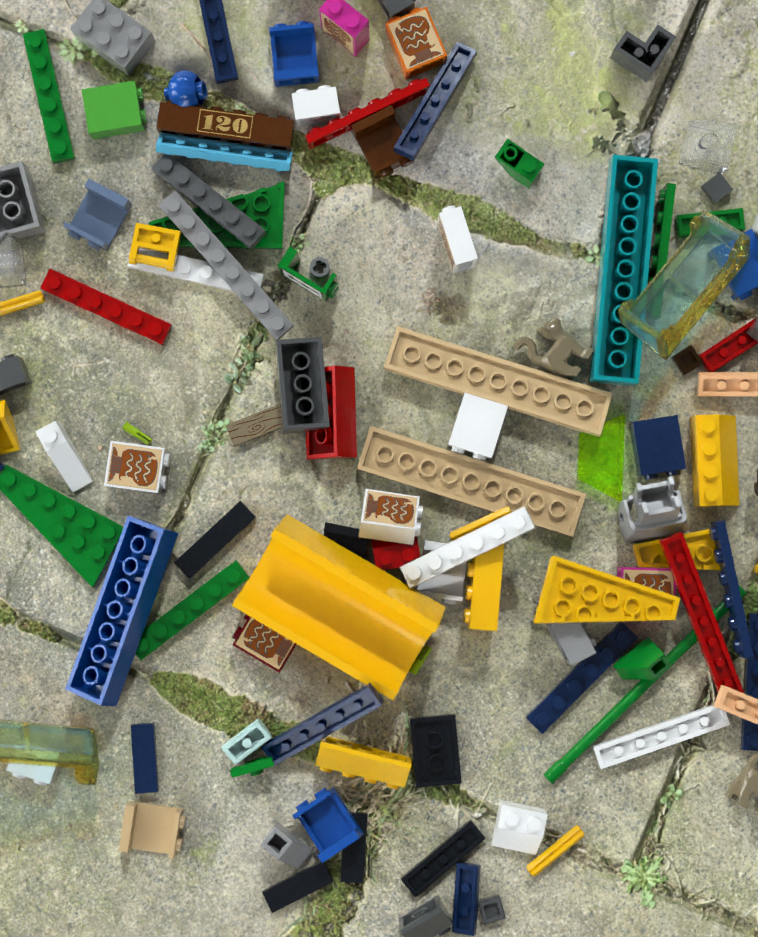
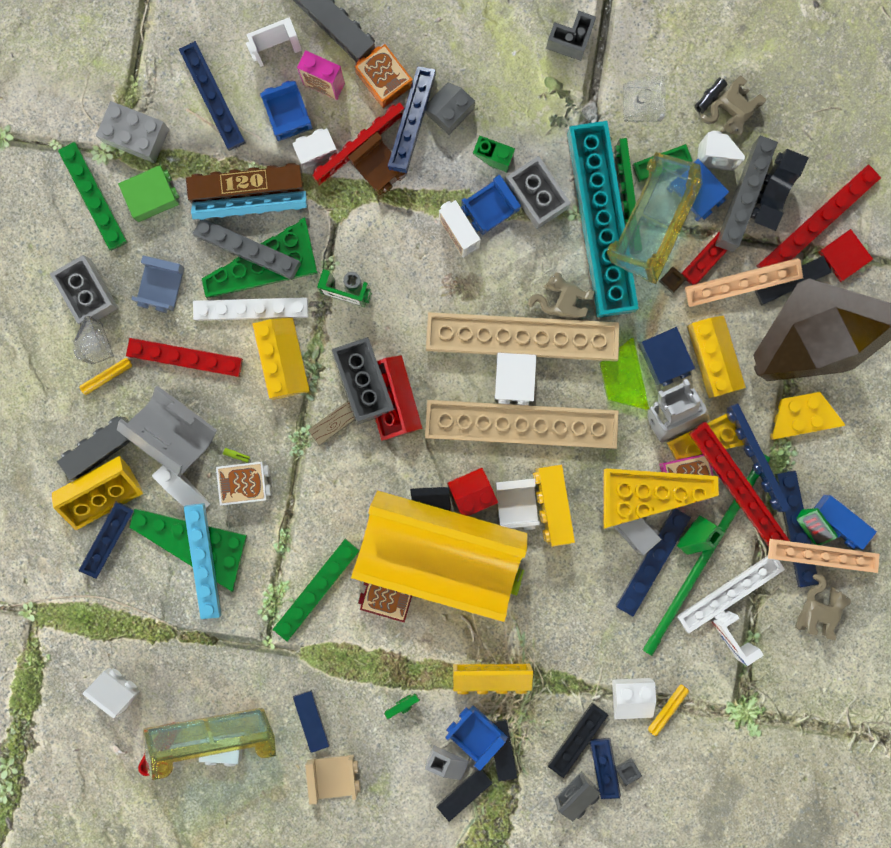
camera: 15 degrees left, 0 degrees up
(67, 387) = (168, 432): none -> light grey piece
(68, 543) = (202, 561): none -> medium azure plate
(121, 611) = (261, 606): blue brick -> none
(155, 239) = (211, 291): yellow plate -> none
(186, 89) = (204, 162): blue plant -> none
(215, 539) = (323, 526): black tile -> none
(216, 335) = (281, 357): none -> yellow slope
(226, 265) = (274, 298): light grey plate -> none
(247, 741) = (392, 686): light aqua brick -> none
(323, 723) = (451, 655): dark blue plate -> none
(390, 517) = (463, 470): brick -> none
(435, 750) = (549, 653): black plate -> none
(460, 532) = (539, 458): yellow axle -> none
(467, 547) = (533, 479): white plate -> none
(482, 97) = (450, 107): none -> dark grey slope
(500, 222) = (490, 205): none -> blue panel
(557, 221) = (537, 192): none -> light grey brick
(659, 809) = (747, 653): none -> white panel
(716, 188) = (660, 133): dark grey tile -> none

